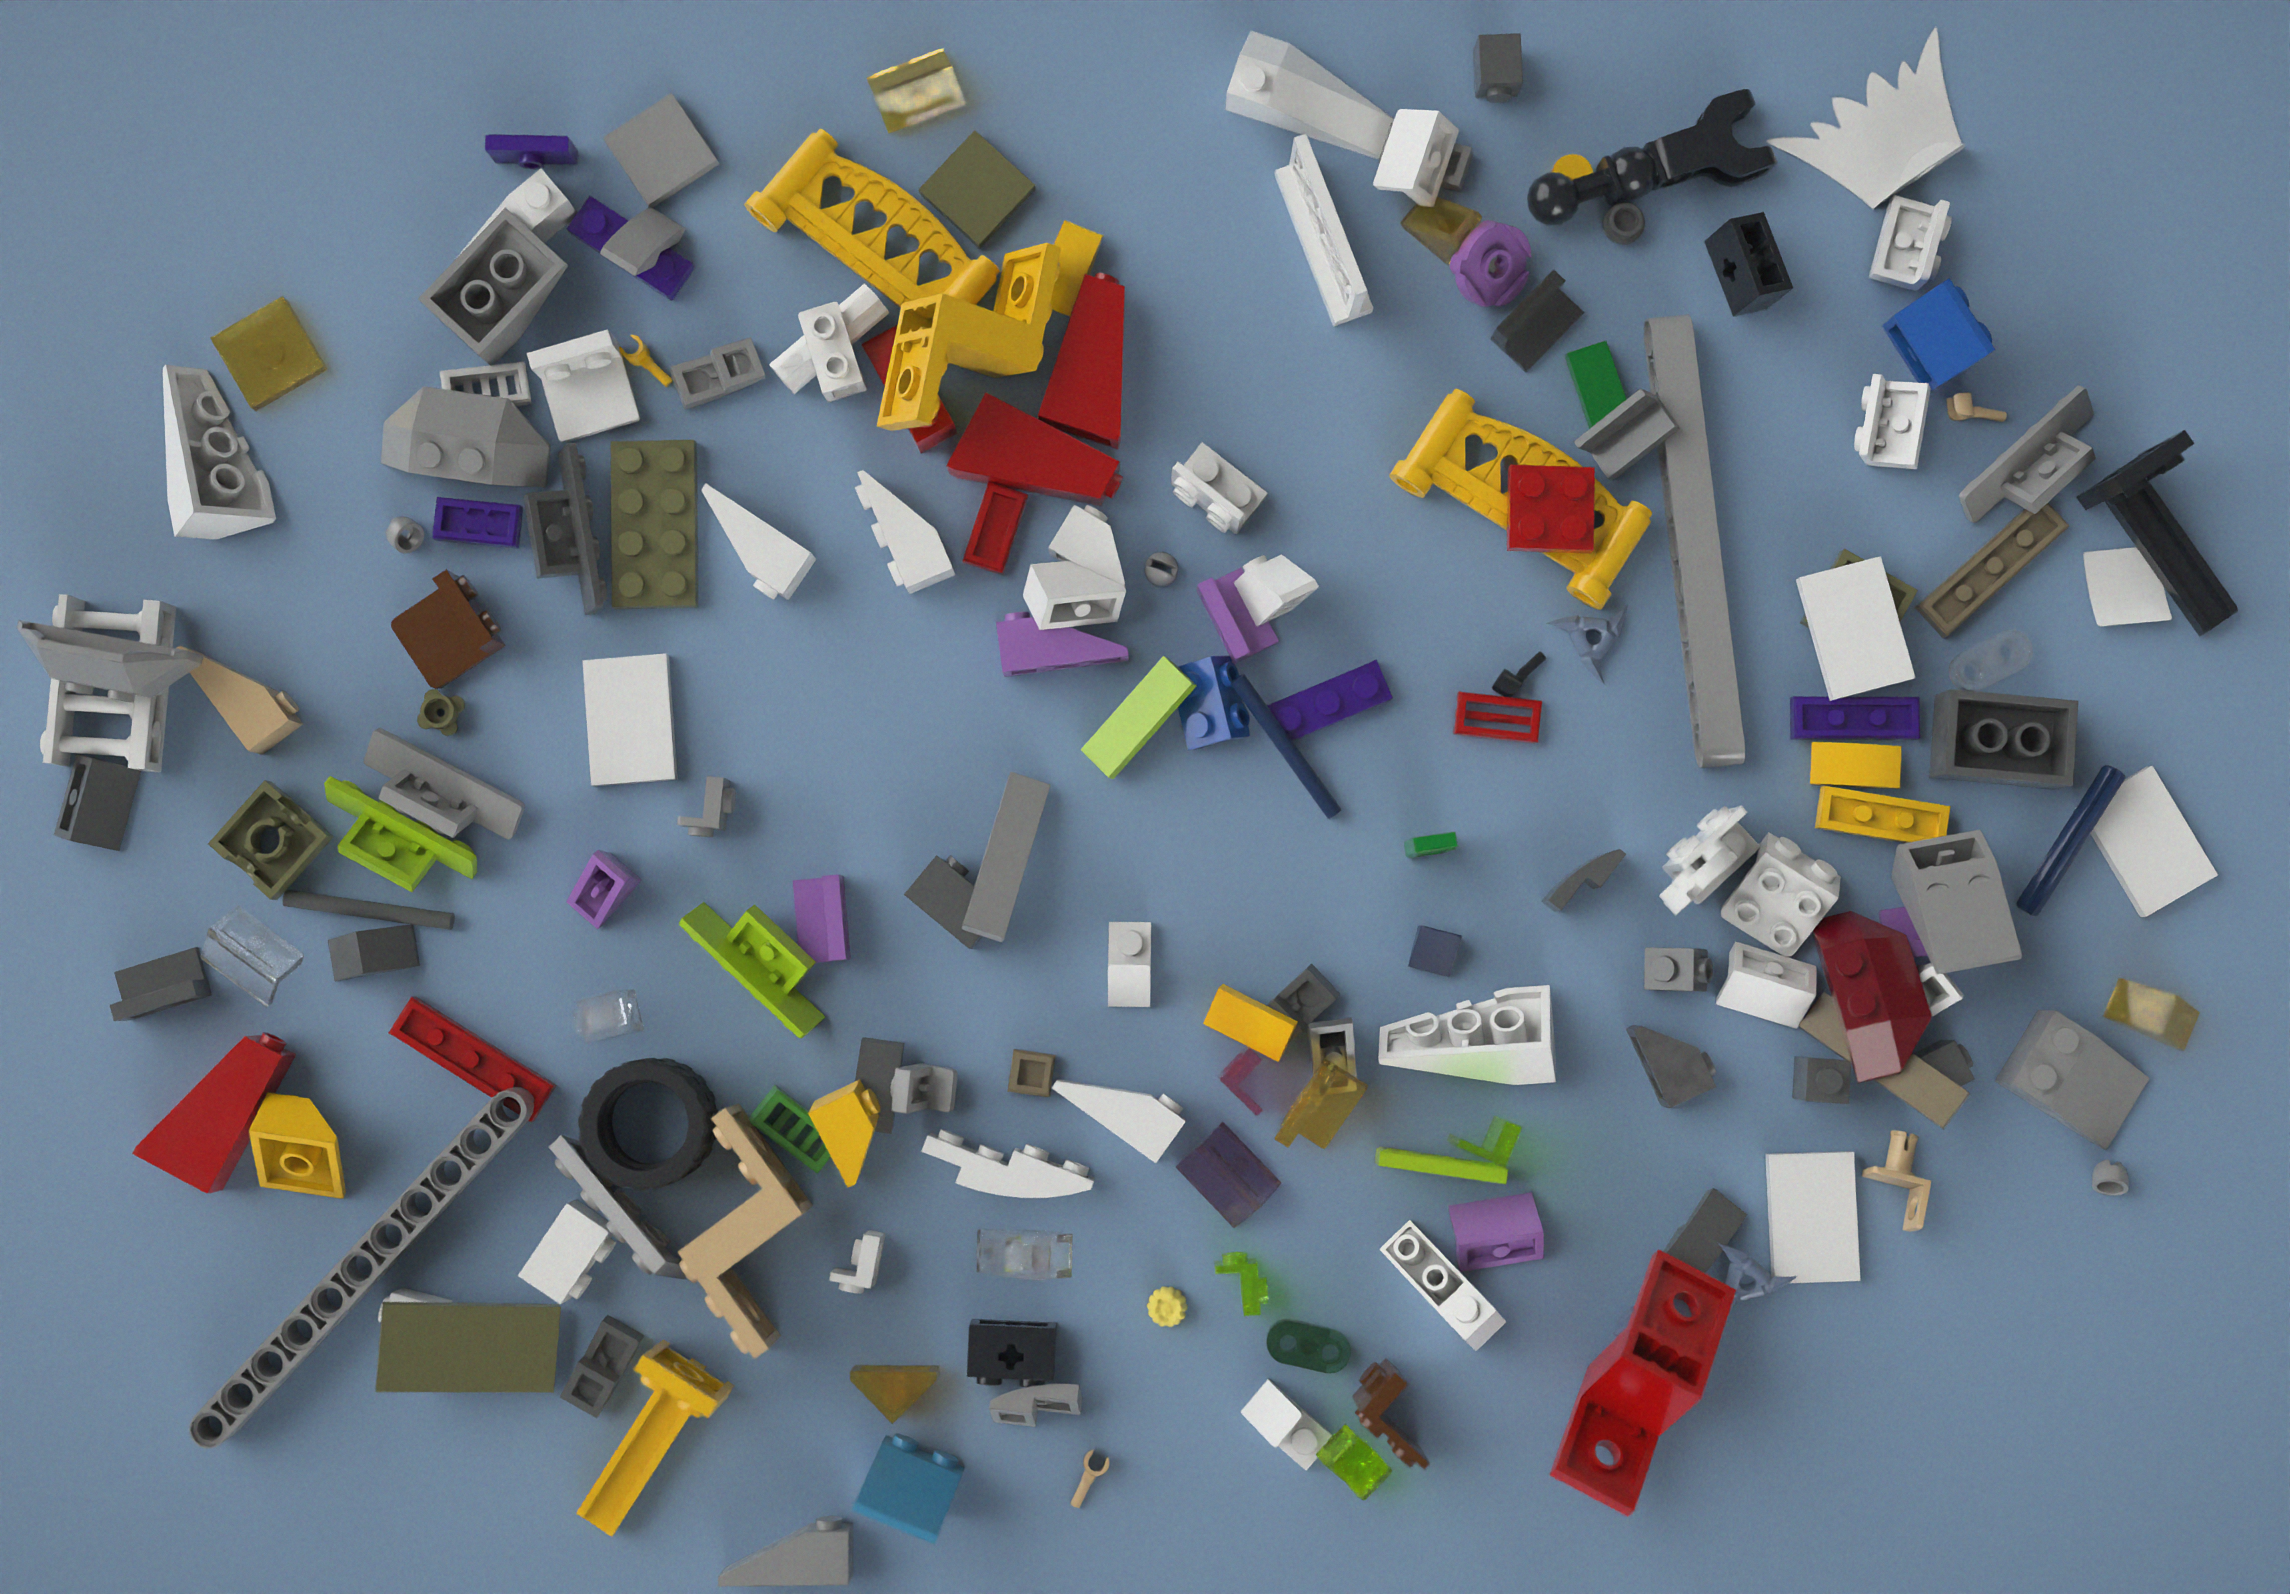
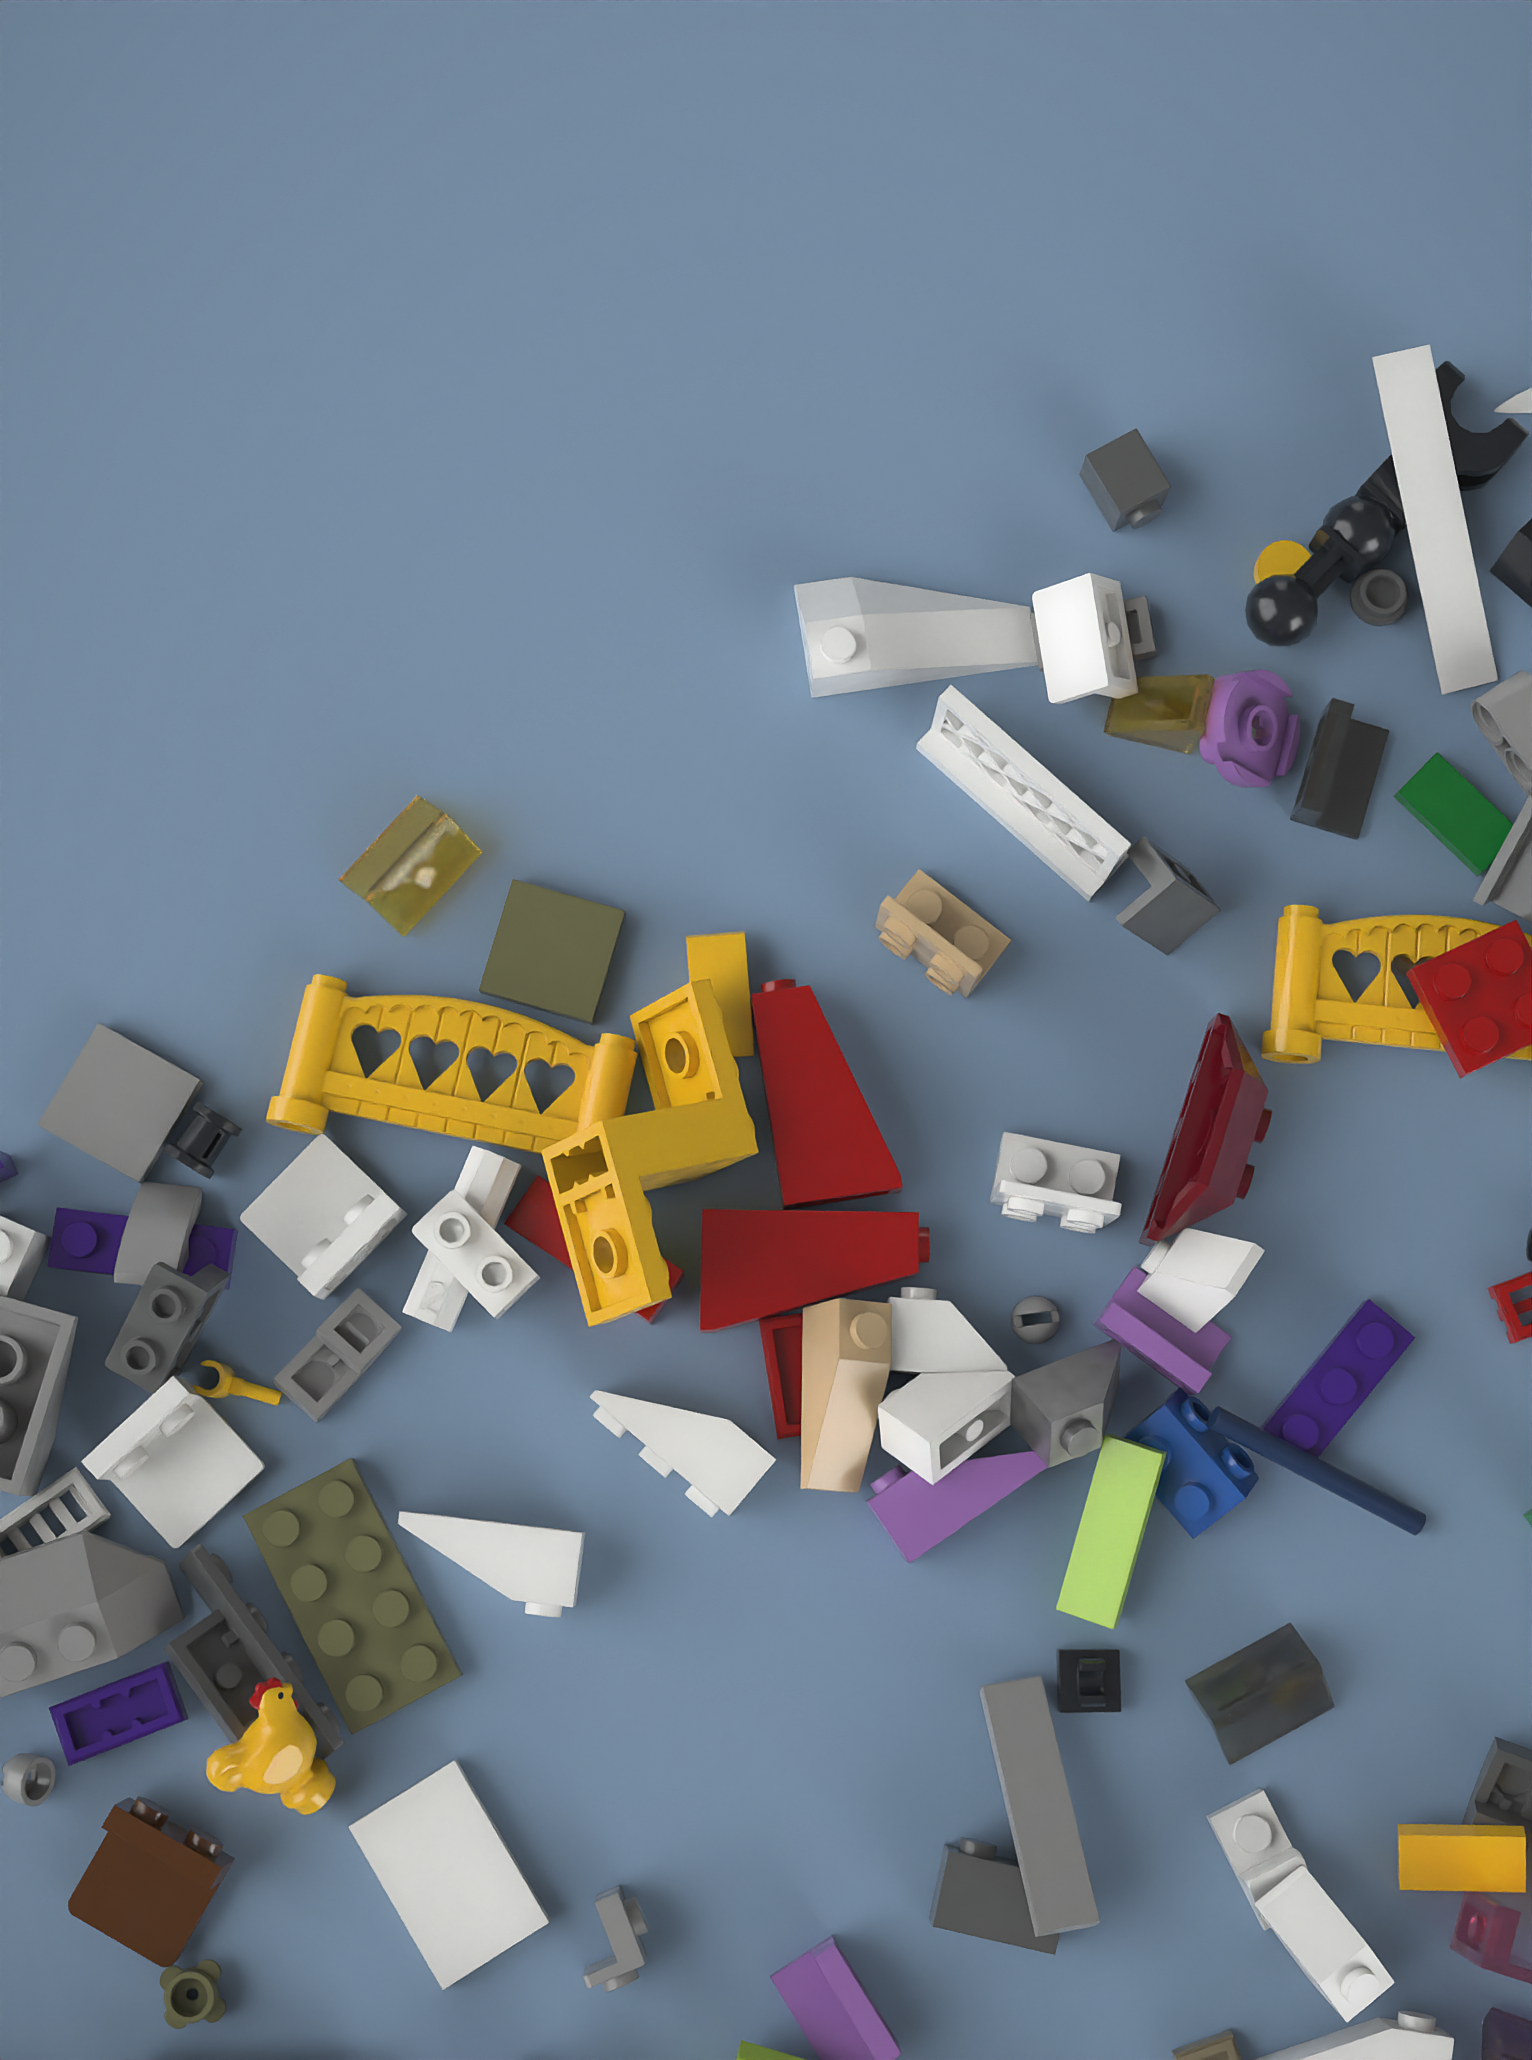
camera: 30 degrees left, 5 degrees down
(558, 590) = (275, 1754): none -> yellow animal
(620, 296) = (165, 1324): none -> dark grey bracket
(700, 198) = (203, 1140): none -> black bush
(750, 283) = (322, 1216): none -> white bracket
(1018, 541) = (842, 1385): none -> tan slope
(1078, 803) = (1088, 1680): none -> black tile
(1136, 1025) = (1324, 1943): none -> white slope
(1152, 624) = (1067, 1403): none -> flat silver slope
(1180, 865) = (1261, 1692): none -> clear smoke panel
(1227, 298) = (940, 934): none -> tan bracket
(1329, 510) = (1211, 1137): none -> dark red wedge
(1379, 348) = (1172, 905): none -> dark grey panel
(1683, 187) = (1435, 518): none -> white sticker

